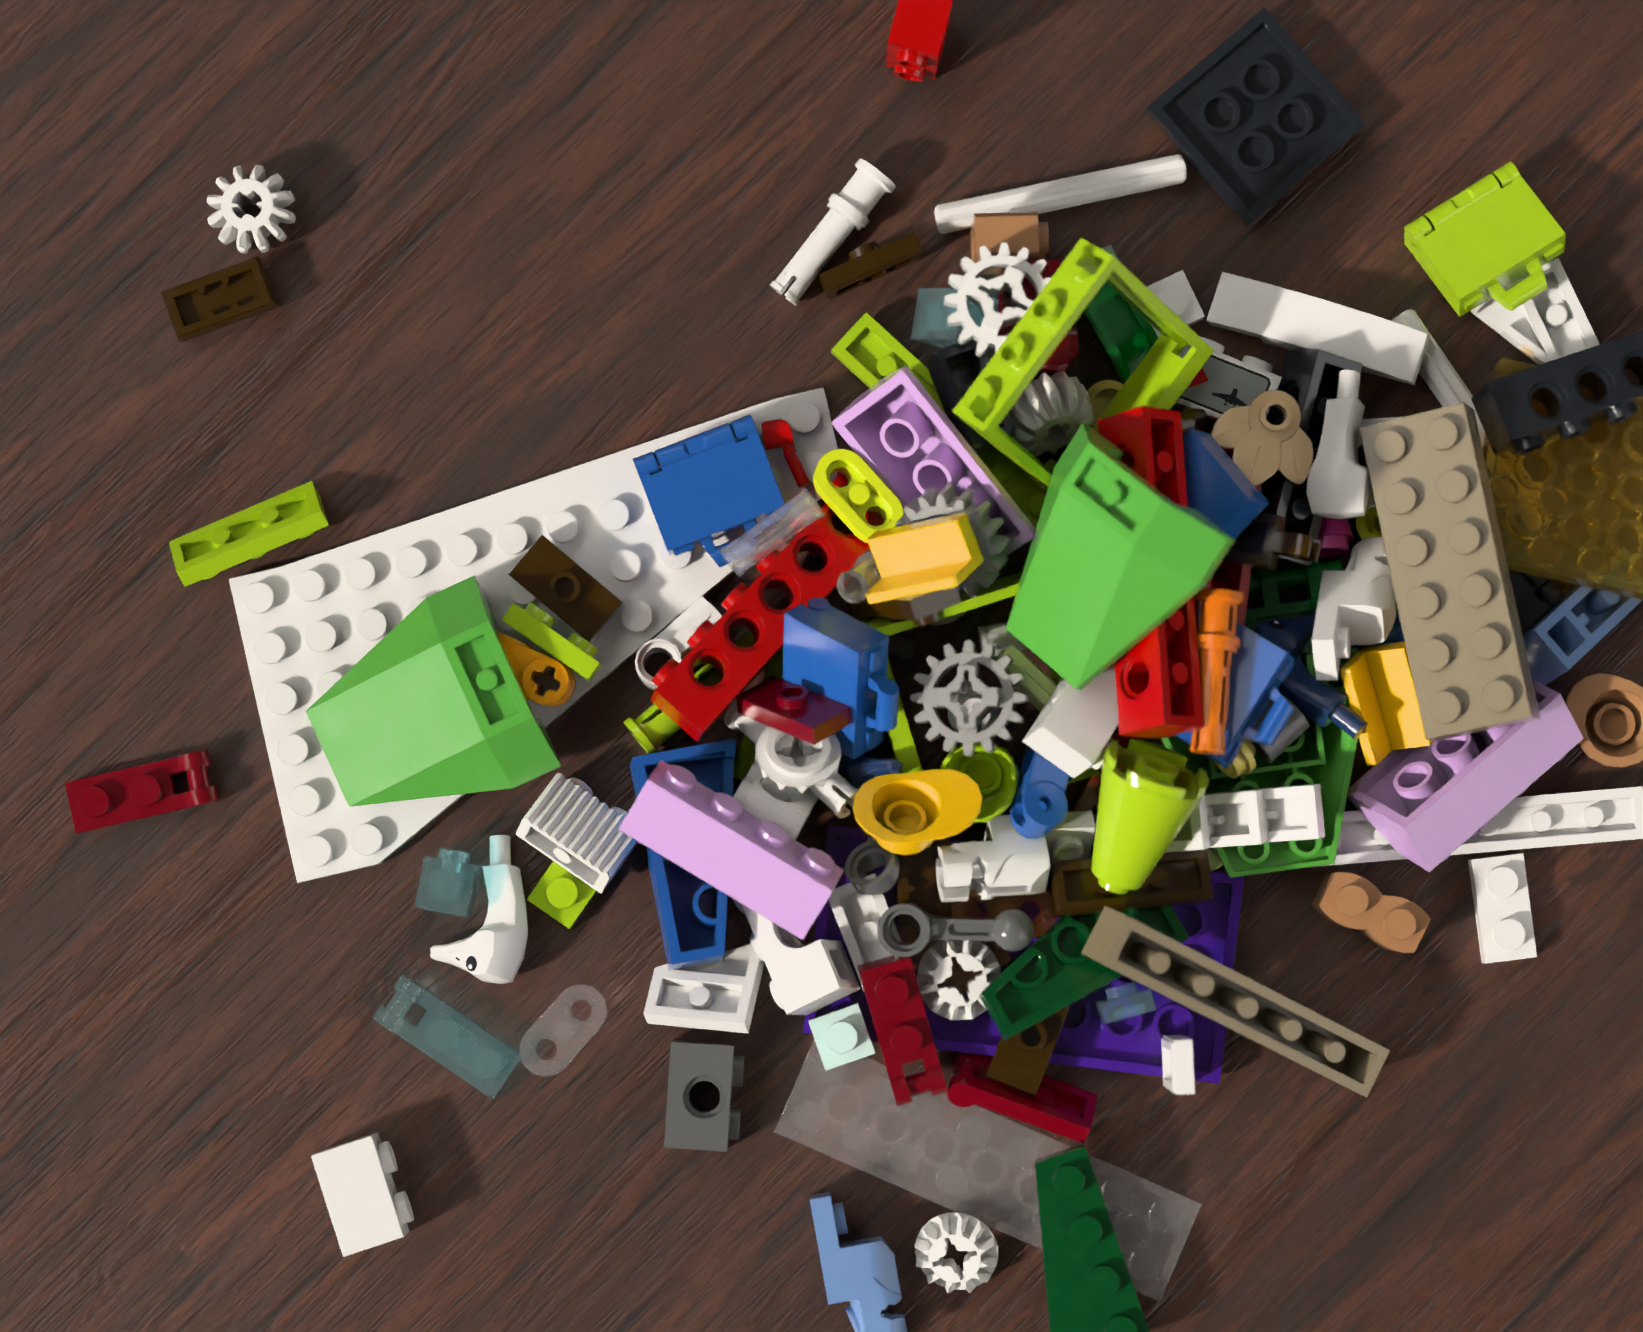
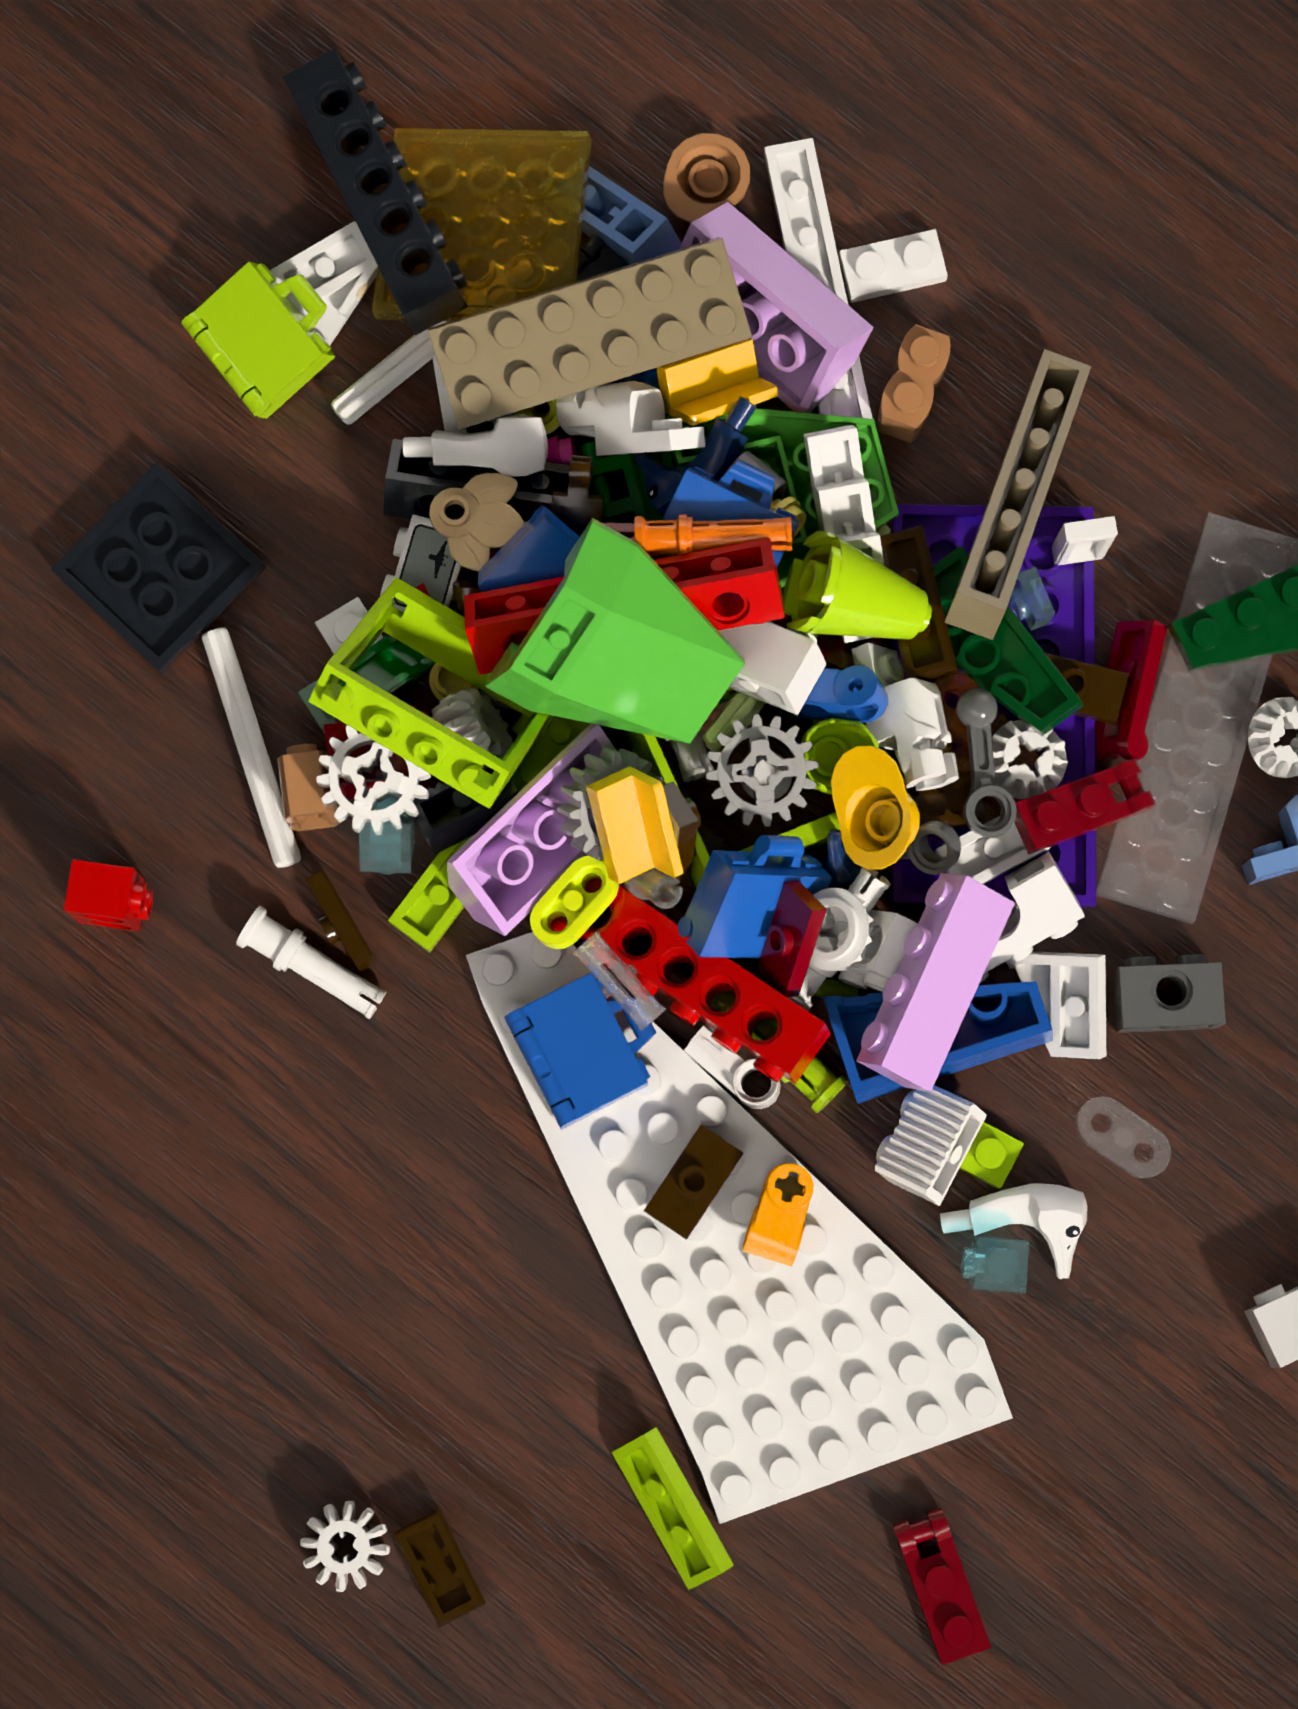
camera: 100 degrees left, 5 degrees down
(433, 710) = (829, 1298): bright green wedge -> none
(449, 1037) = (1144, 1249): clear light blue plate -> none
(536, 626) = (756, 1165): lime plate -> none
(779, 434) = (518, 988): red hand -> none
(841, 1036) = (1096, 865): light aqua plate -> none
(1308, 322) = (358, 488): white slope -> none

